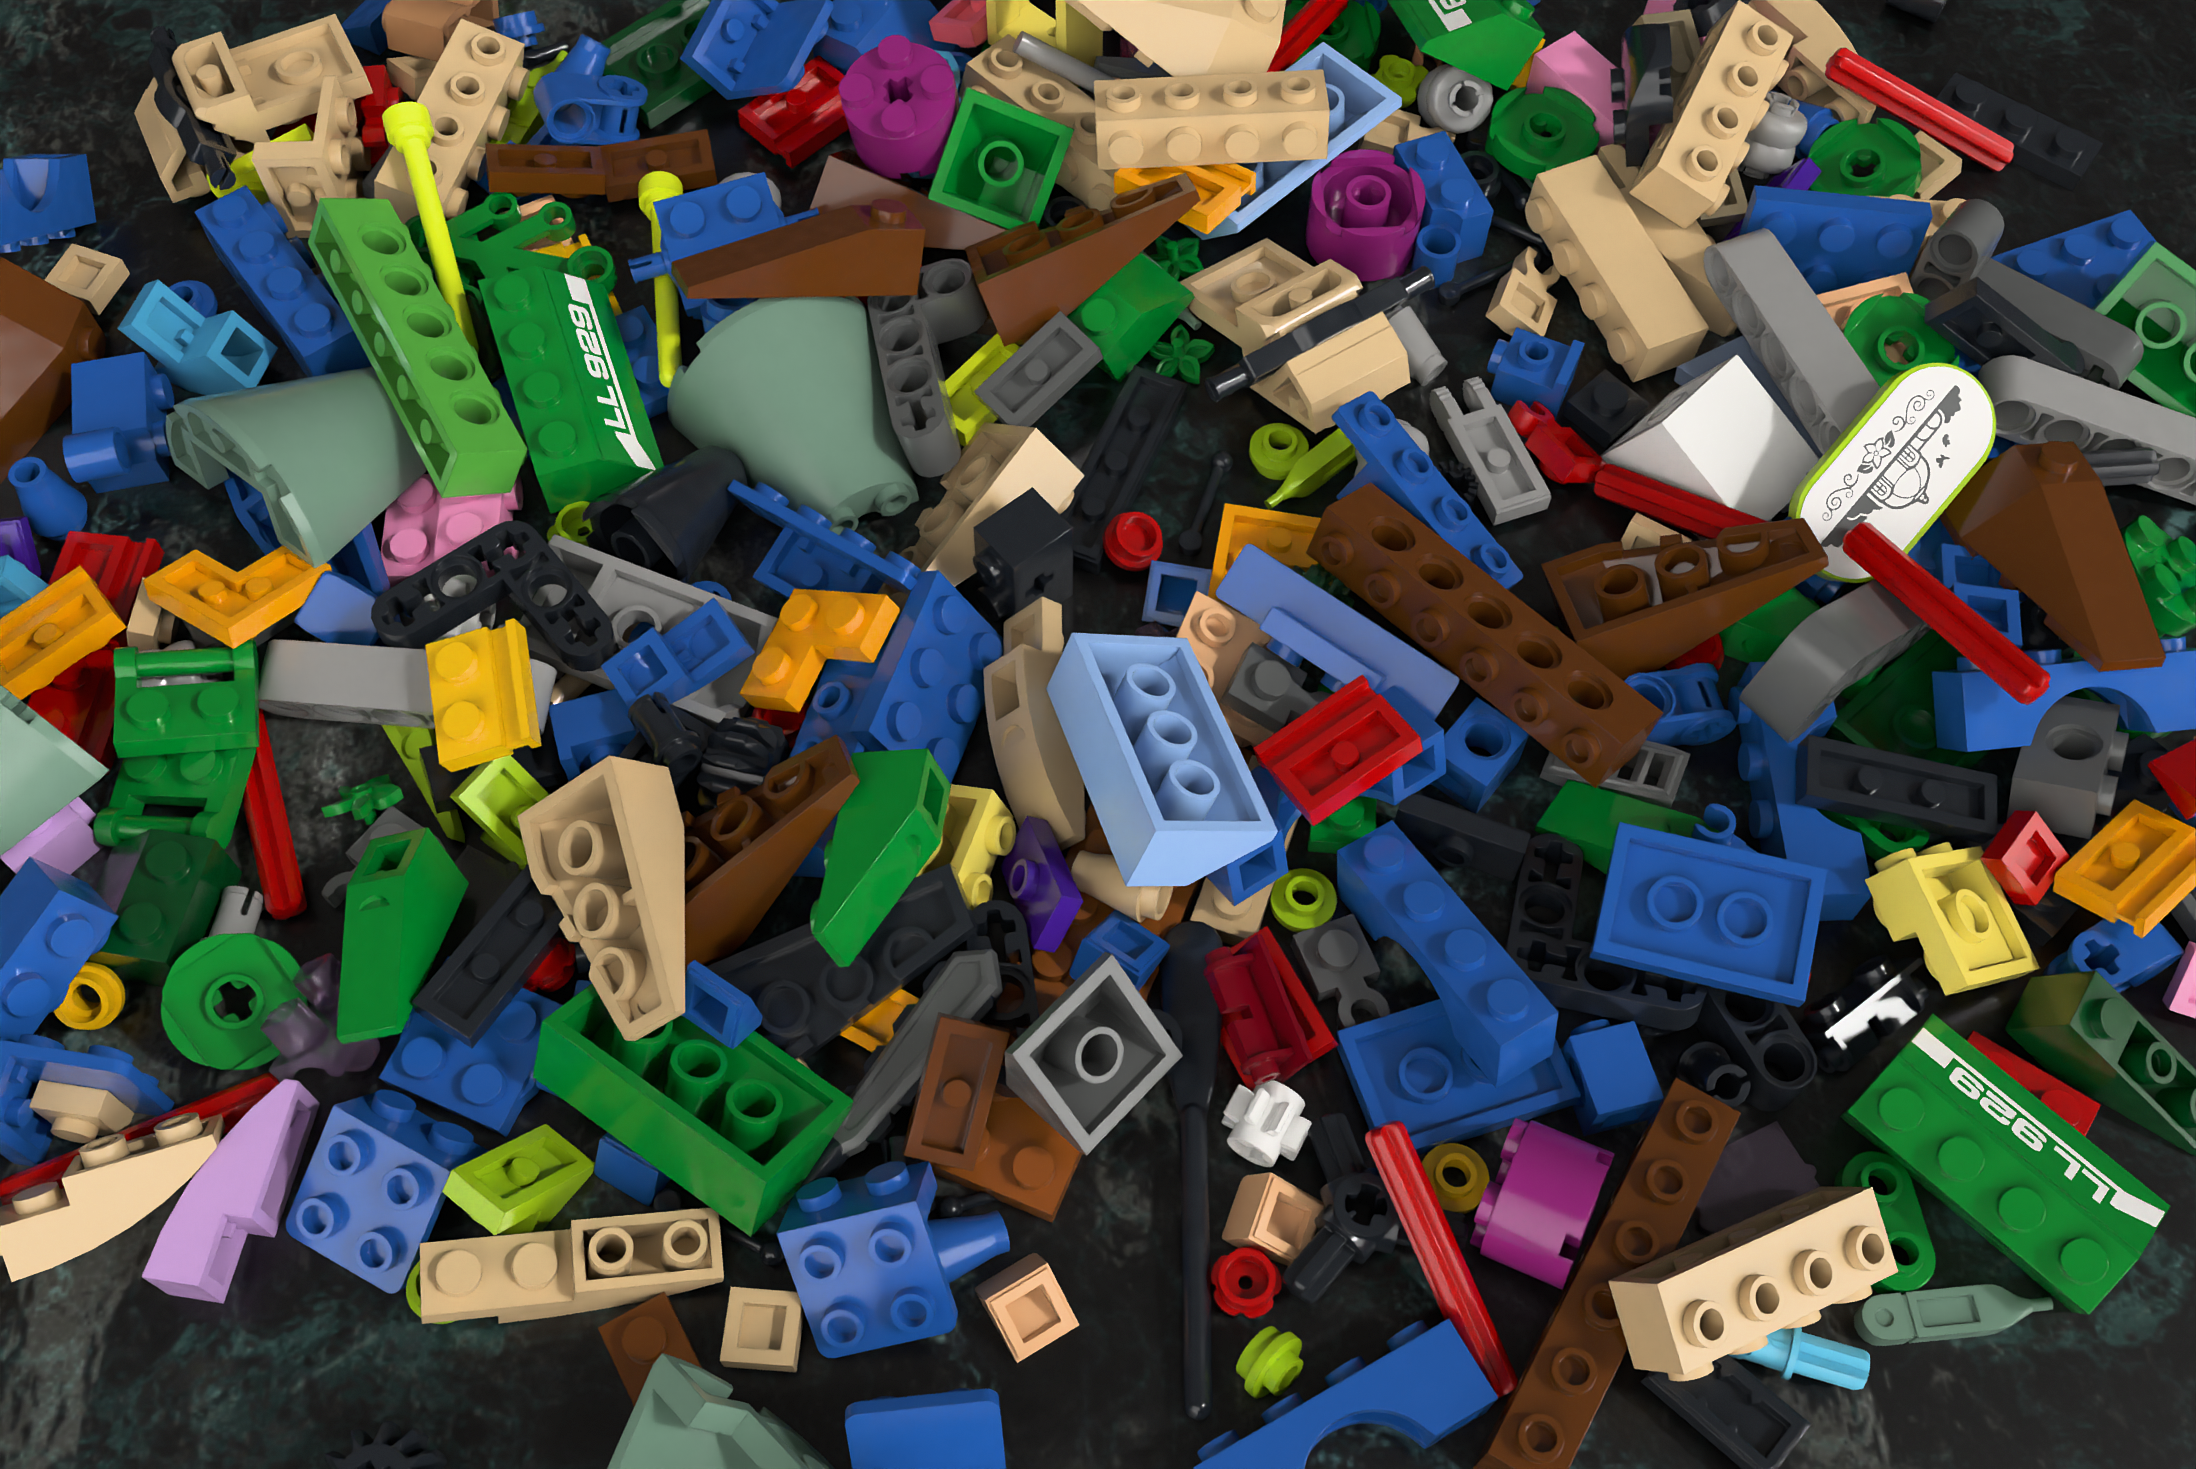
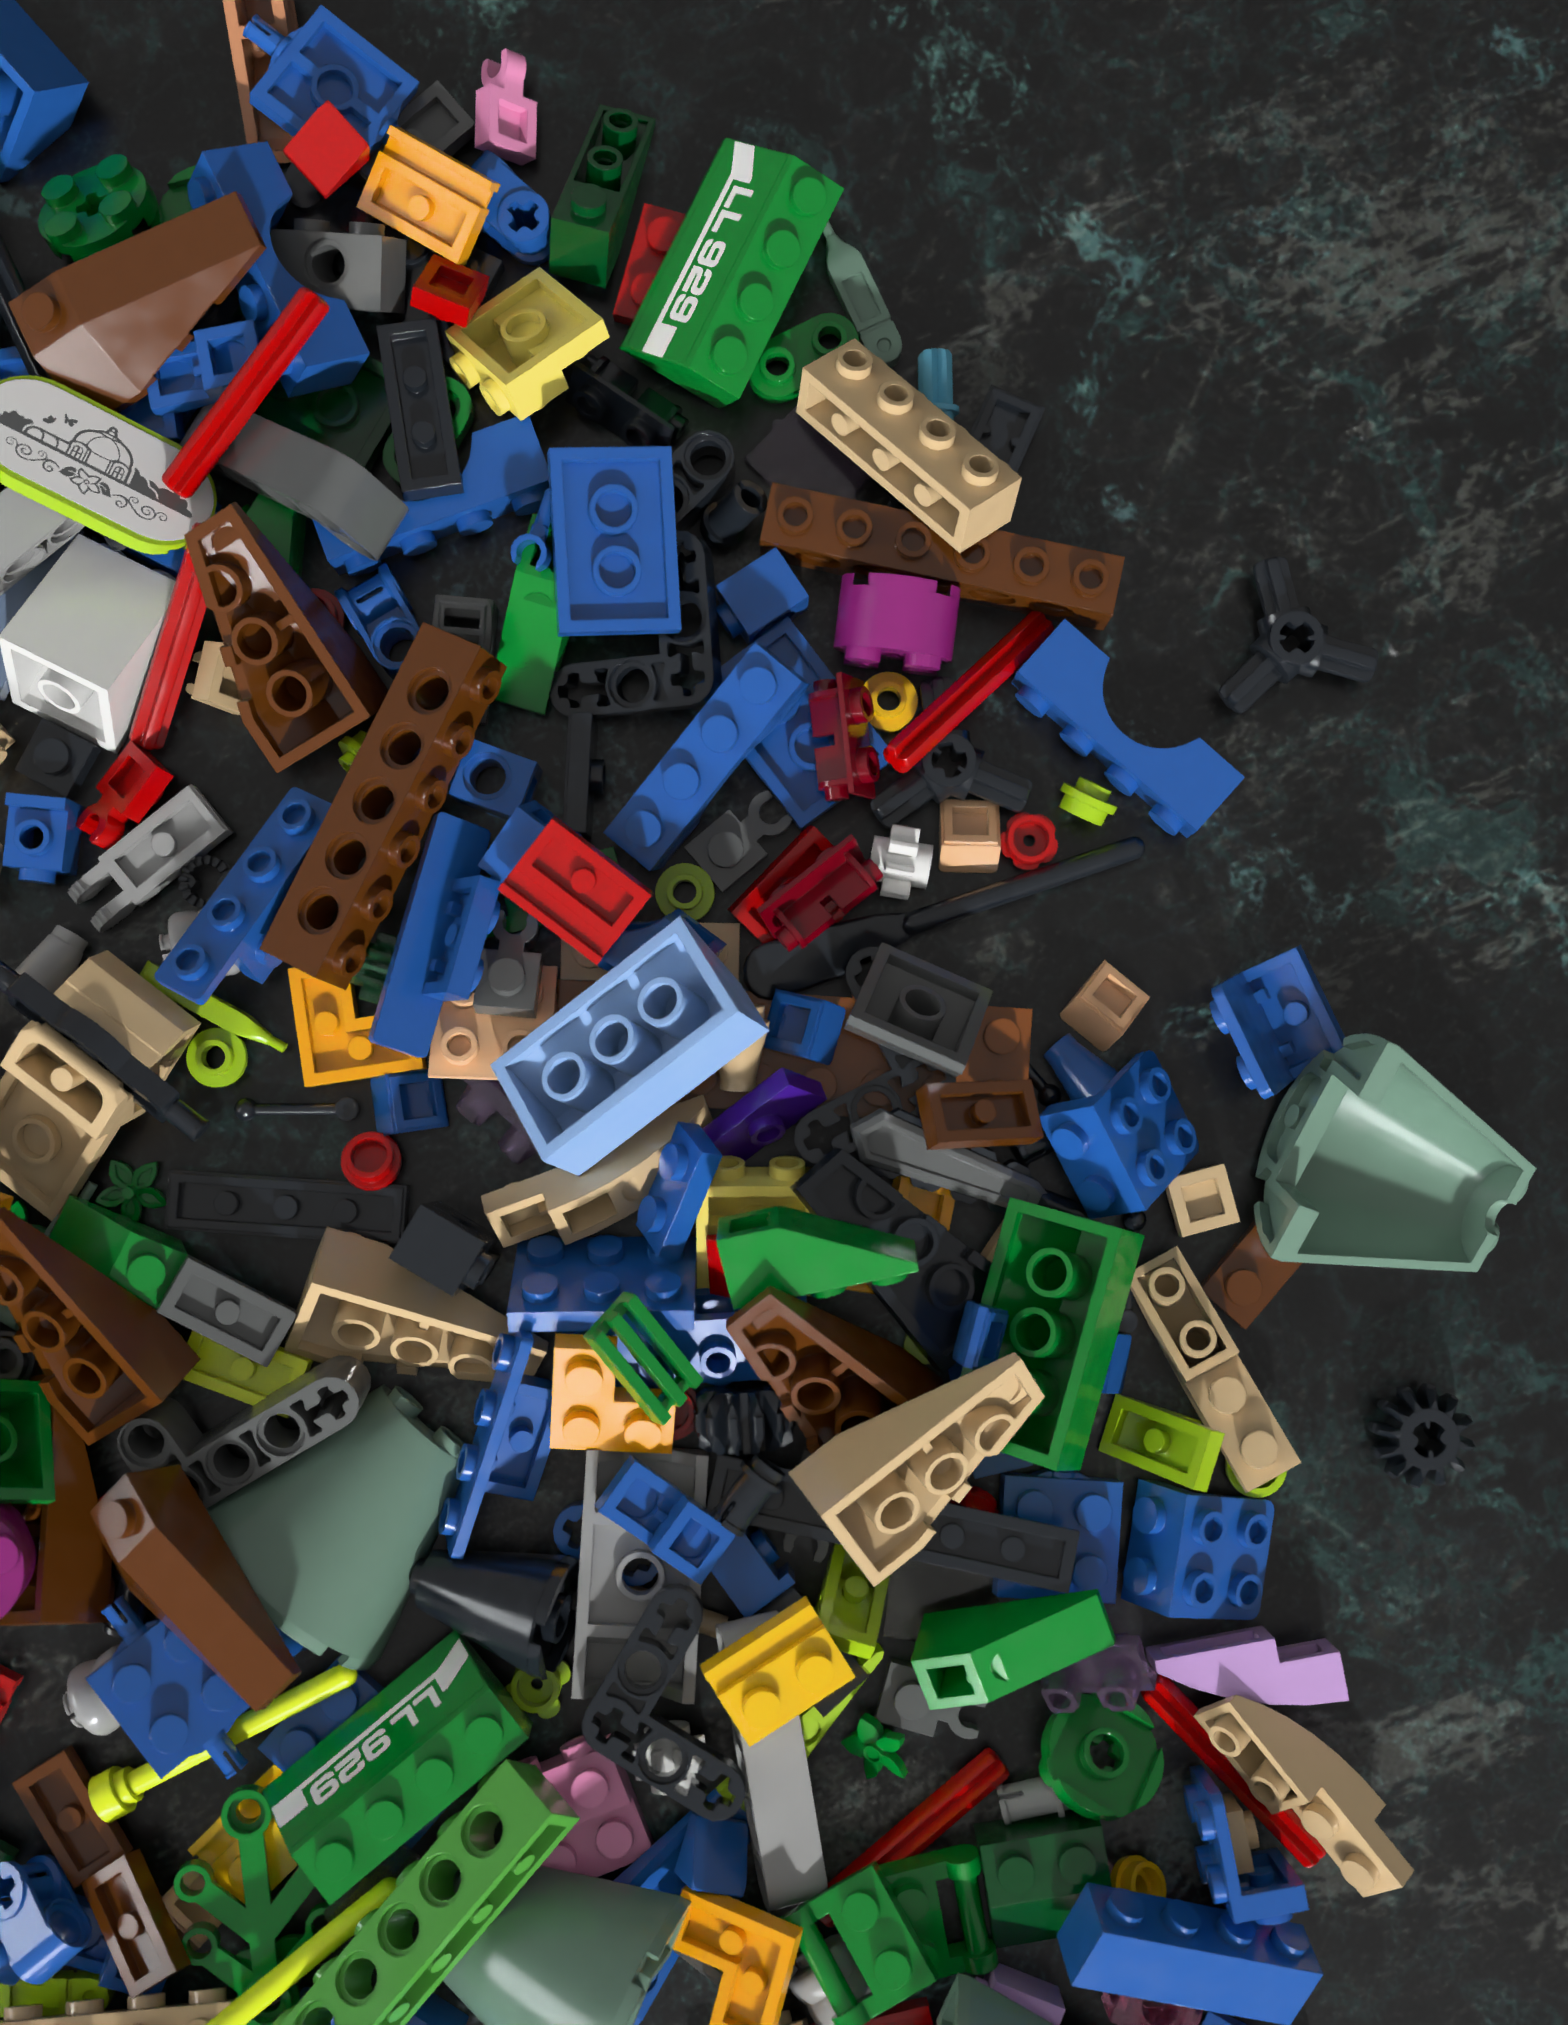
camera: 110 degrees left, 25 degrees up
(795, 692) = (672, 1389): none -> green tile
(1009, 779) = (678, 1190): none -> blue plate
(1448, 1109) = (843, 710): none -> dark red hinge

